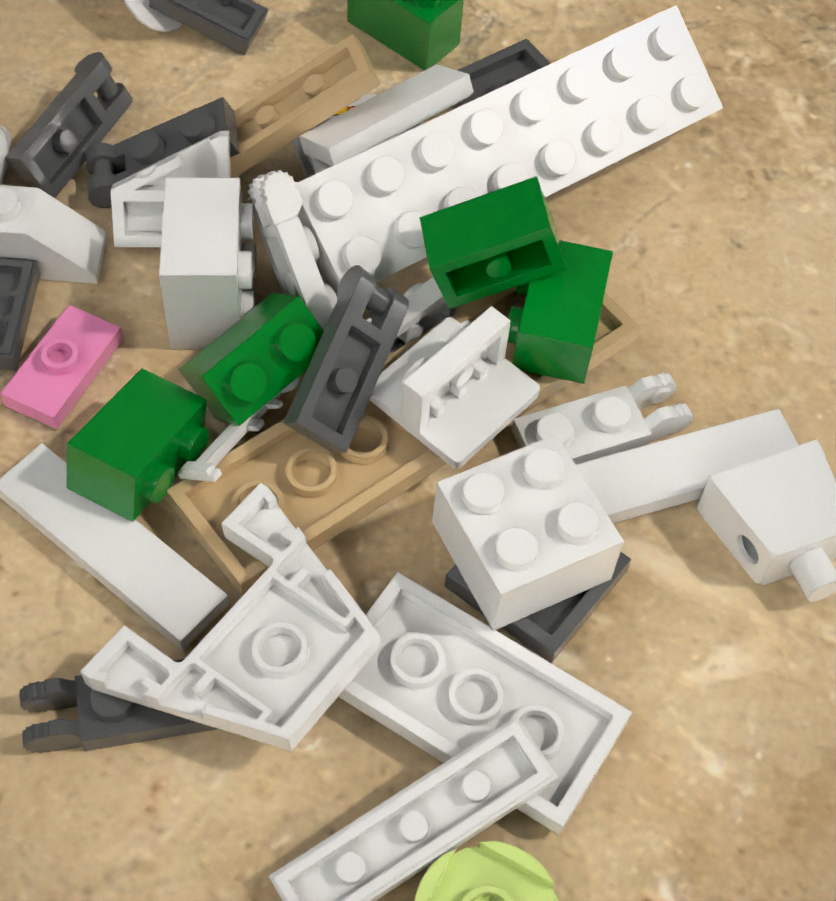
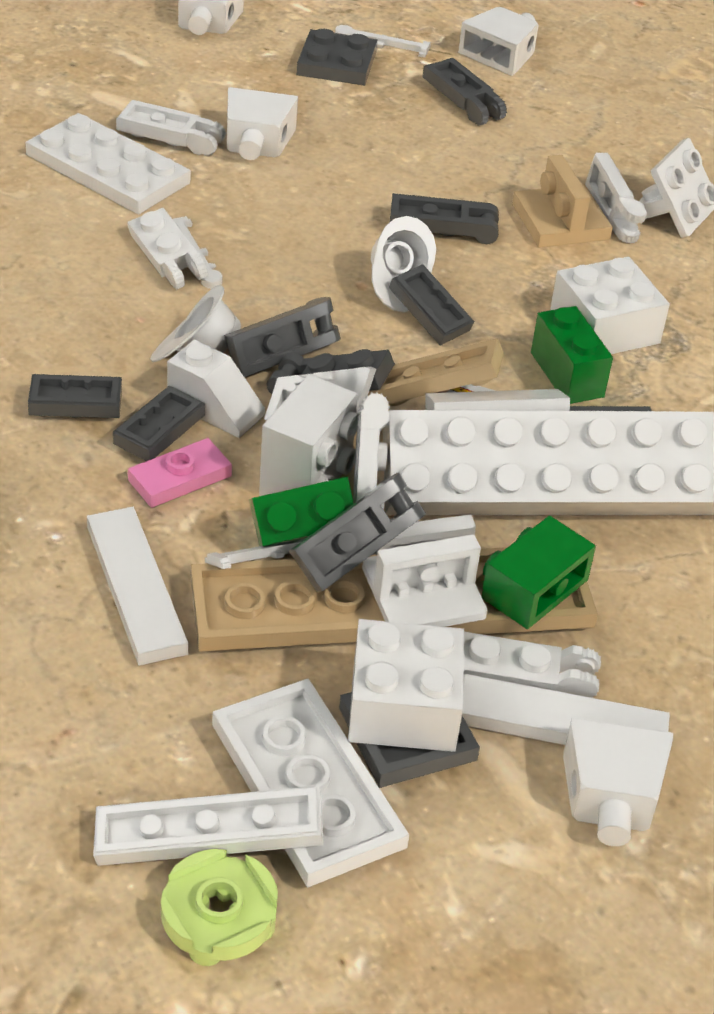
camera: 30 degrees right, 15 degrees down
(102, 718) = (78, 674): dark grey hinge -> none
(137, 445) = (187, 526): green brick -> none
(271, 657) = (184, 679): white wing -> none
(492, 243) = (506, 501): green brick -> none

